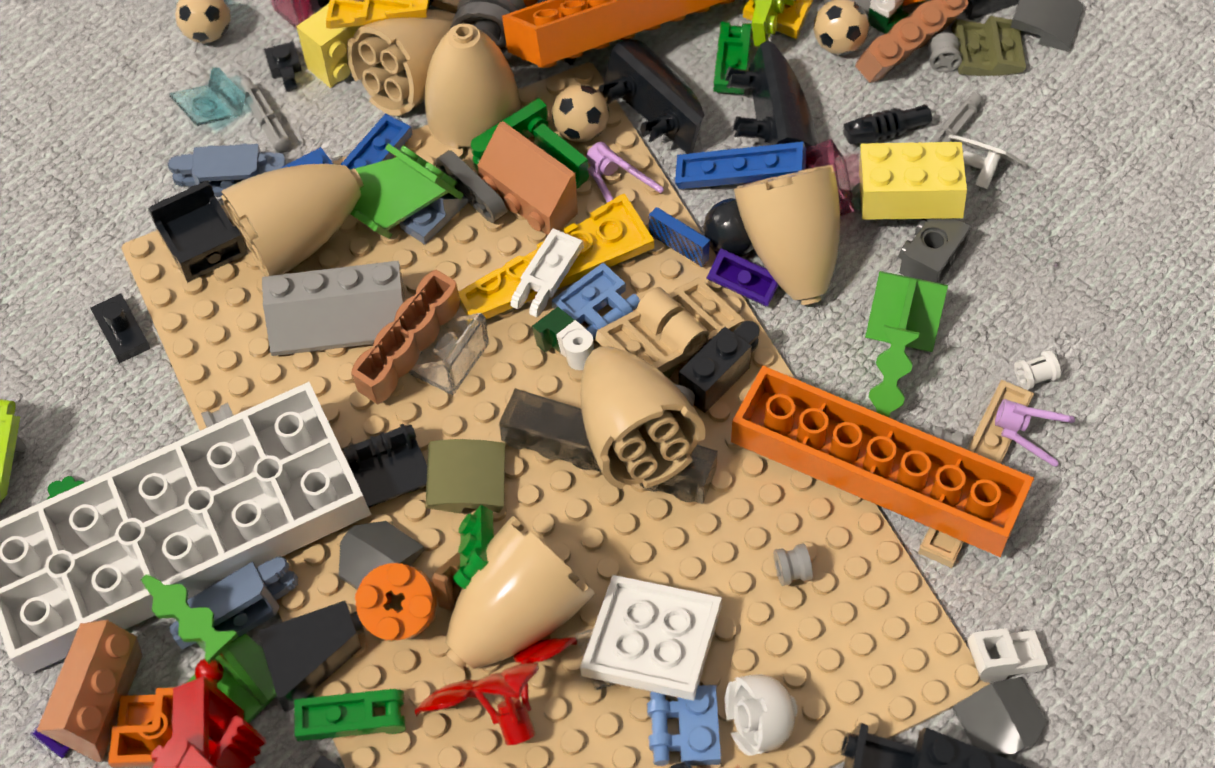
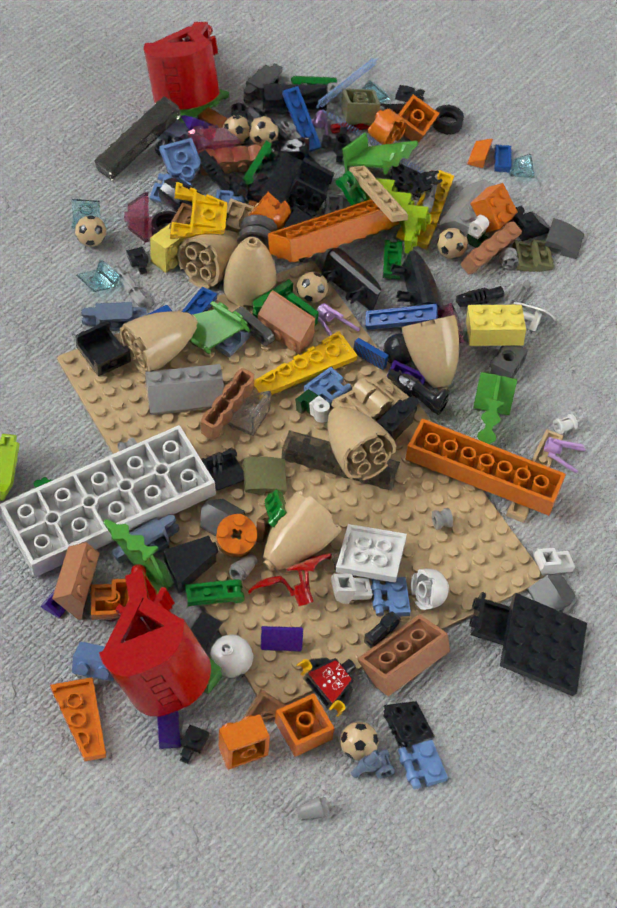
camera: 10 degrees left, 5 degrees down
(120, 328) = (62, 400): black tile -> none
(406, 664) = (243, 567): none -> light grey cone
(547, 270) = (301, 369): white hinge -> none
(603, 710) = (349, 588): none -> white brick
(752, 301) = (412, 387): none -> black piece

